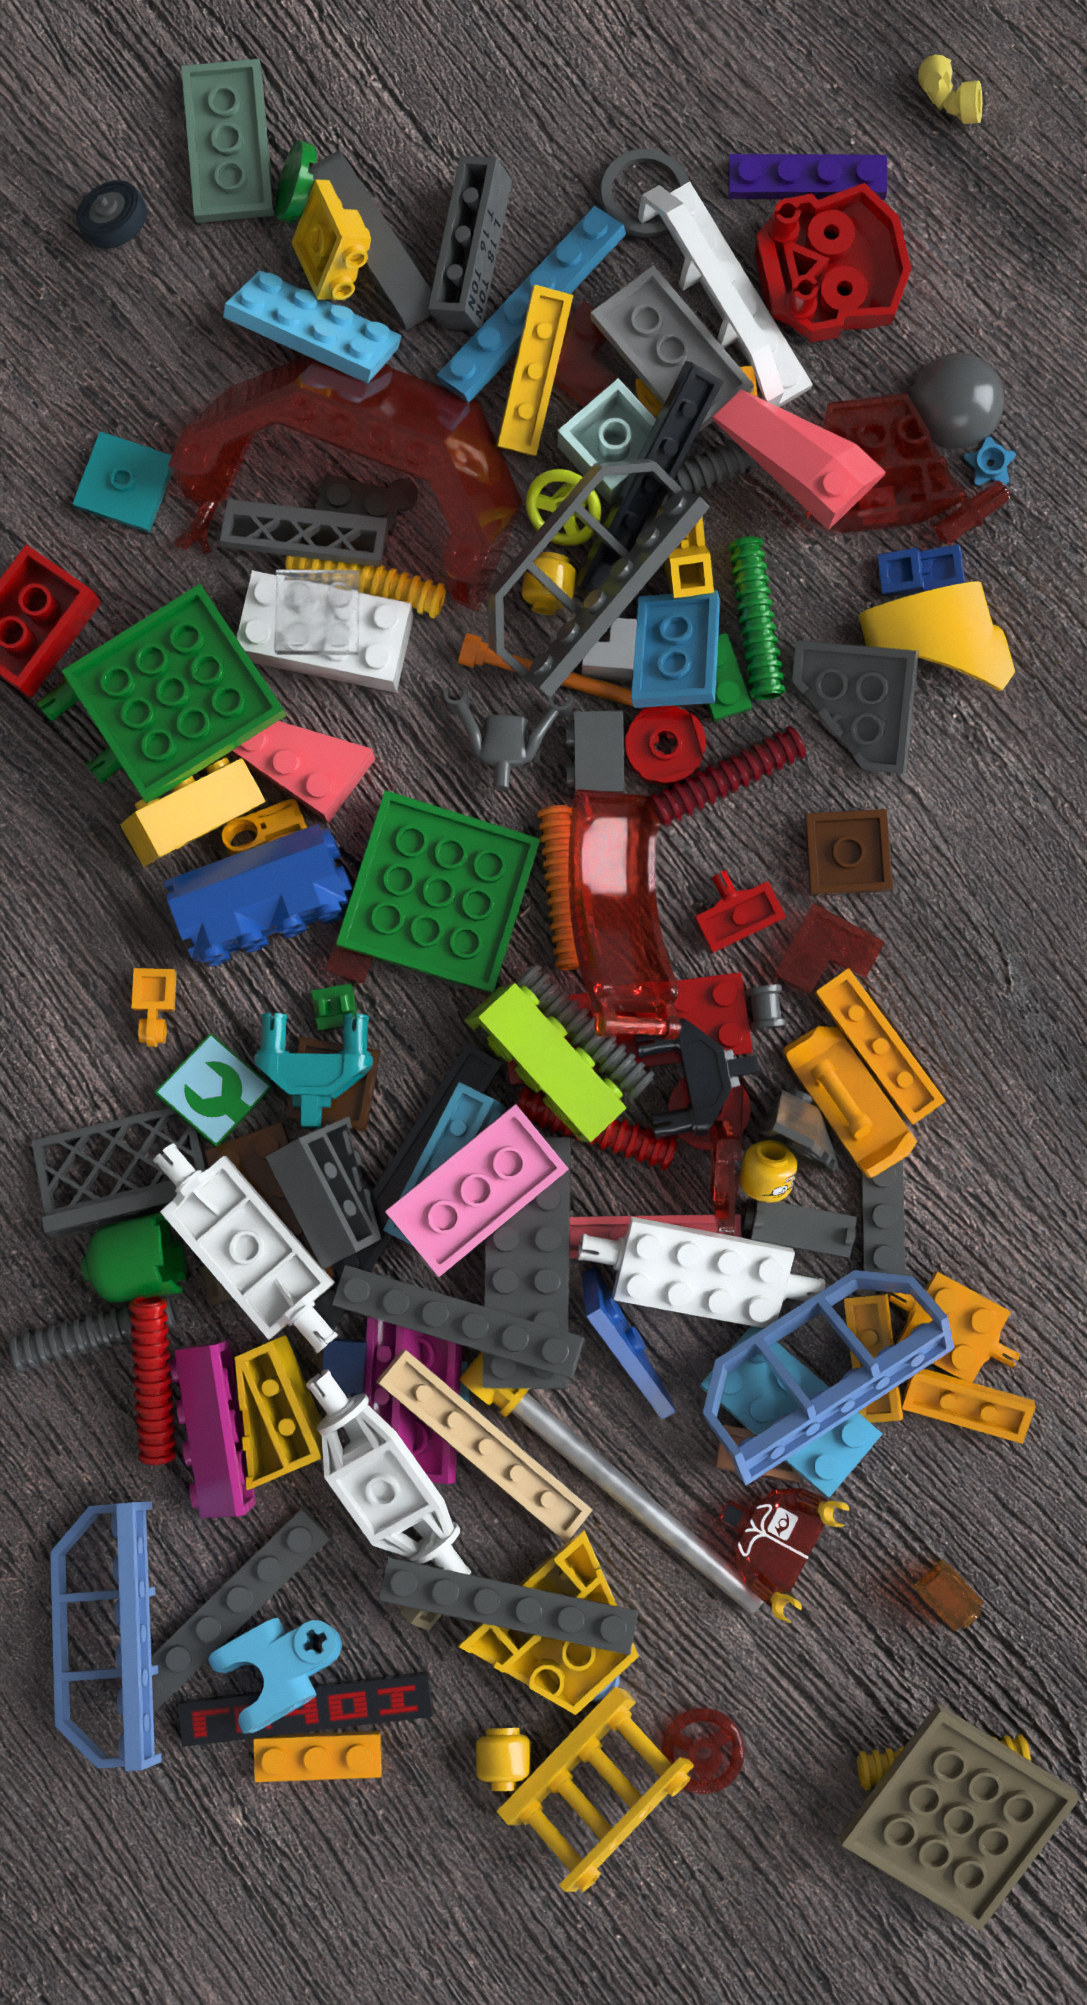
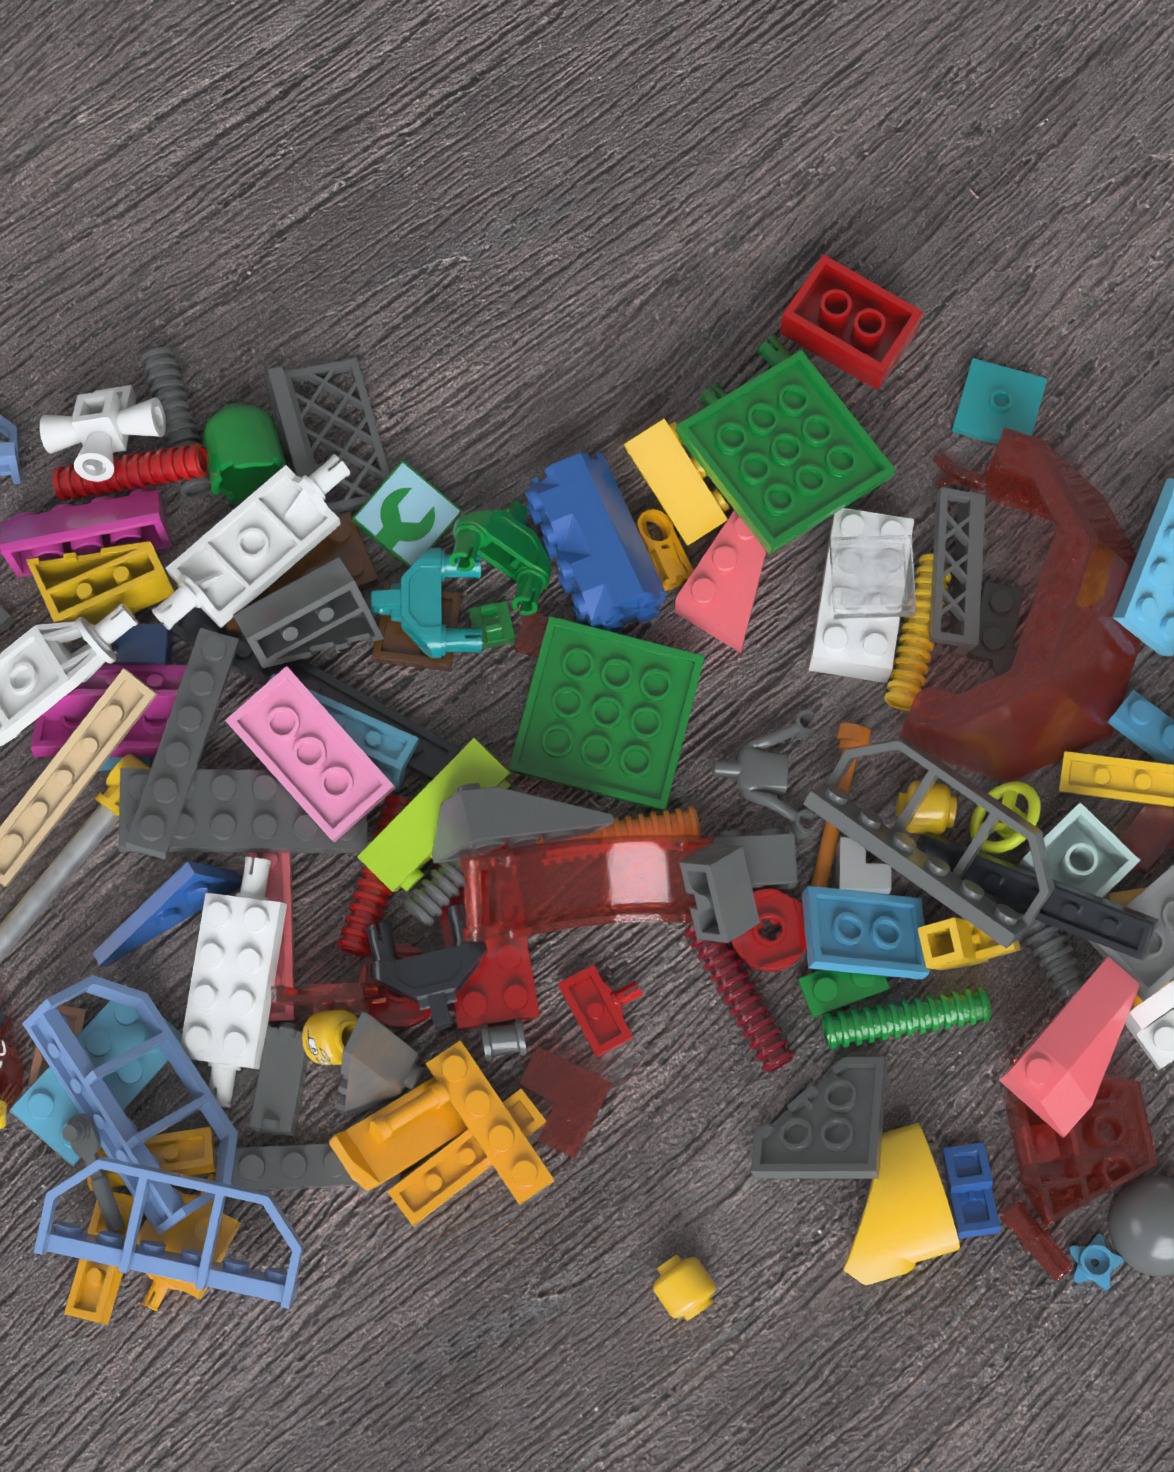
camera: 85 degrees right, 10 degrees down
(100, 1409) = (103, 426): none -> white brick
(153, 992) = (499, 457): light orange plate -> none
(257, 983) = (508, 546): none -> green connector
(564, 993) = (495, 816): none -> dark grey wedge
(637, 780) = (721, 891): none -> dark grey brick
(848, 852) = (667, 1119): reddish brown plate -> none
(850, 1021) = (490, 1123): none -> light orange plate
(864, 1420) = (86, 1143): none -> dark grey piece
(989, 1322) = (151, 1256): none -> medium blue plate
(1010, 842) = (684, 1287): none -> yellow head

